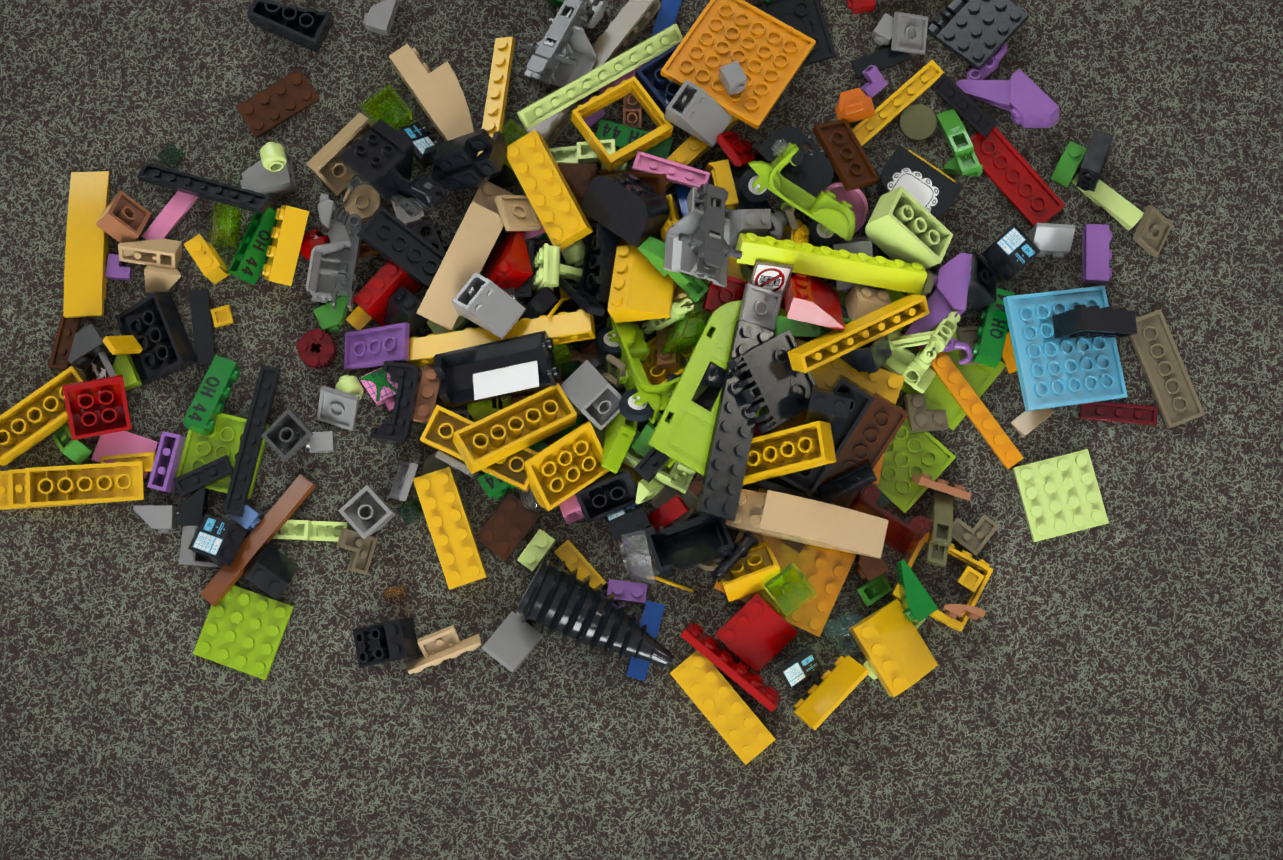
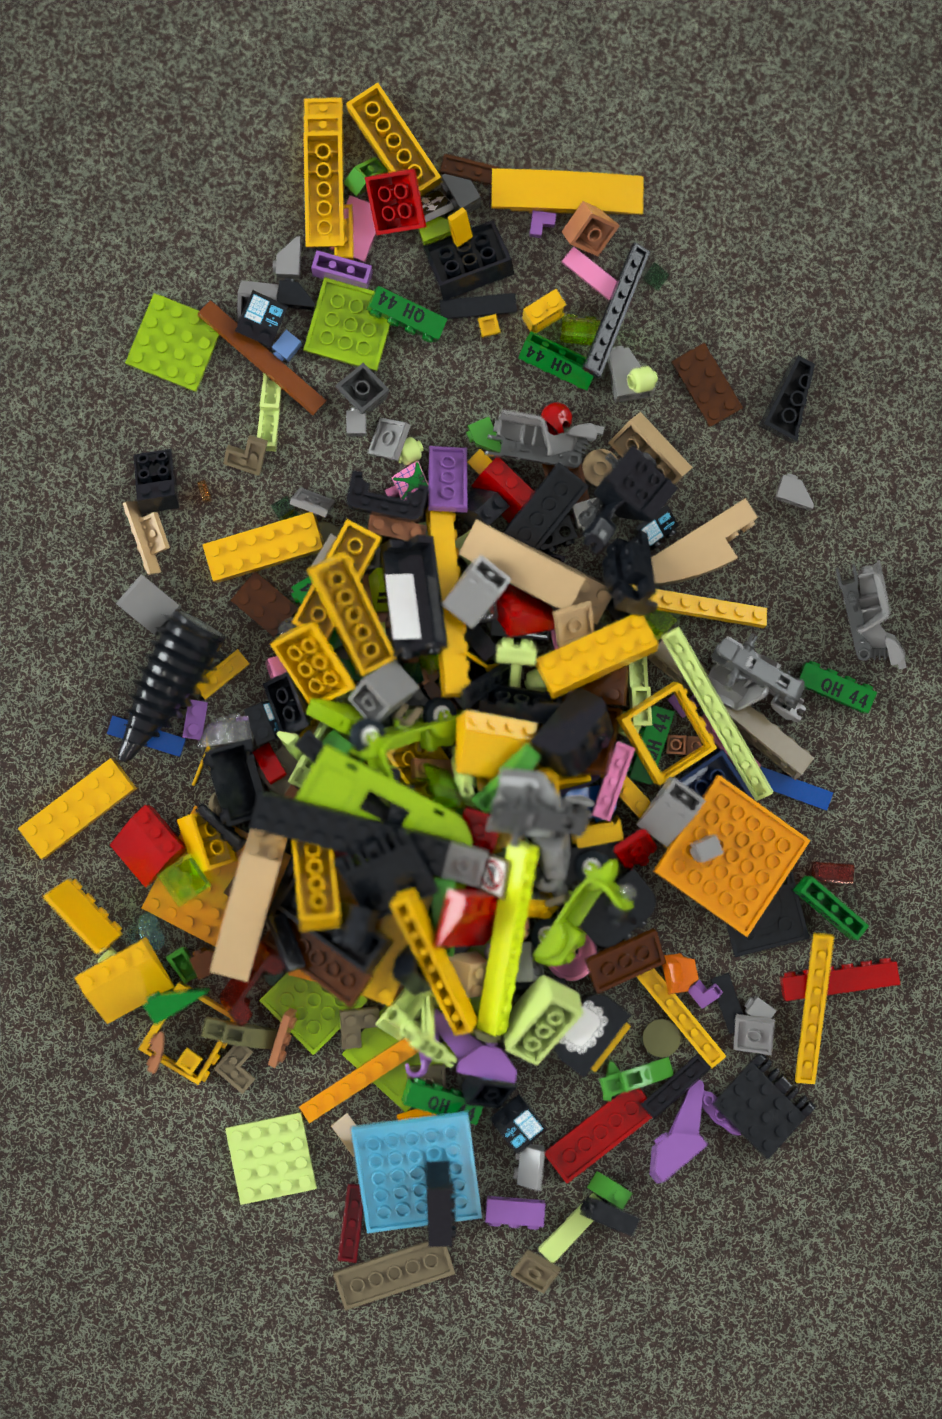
camera: 90 degrees right, 5 degrees up
(154, 252) = (554, 257): tan slope -> none
(160, 279) = (533, 265): tan slope -> none
(204, 476) = (327, 306): black tile -> none
(251, 441) = (359, 353): black tile -> none
(271, 571) = (229, 370): black slope -> none
(285, 245) = (554, 390): yellow brick -> none
(307, 345) = (449, 408): dark red brick -> none
(367, 512) = (283, 465): light grey slope -> none
(388, 107) = (692, 495): clear neon green slope -> none
(536, 550) = (238, 632): yellowish green brick -> none
(726, 662) = (114, 819): red plate -> none
(799, 668) = (110, 885): black slope -> none

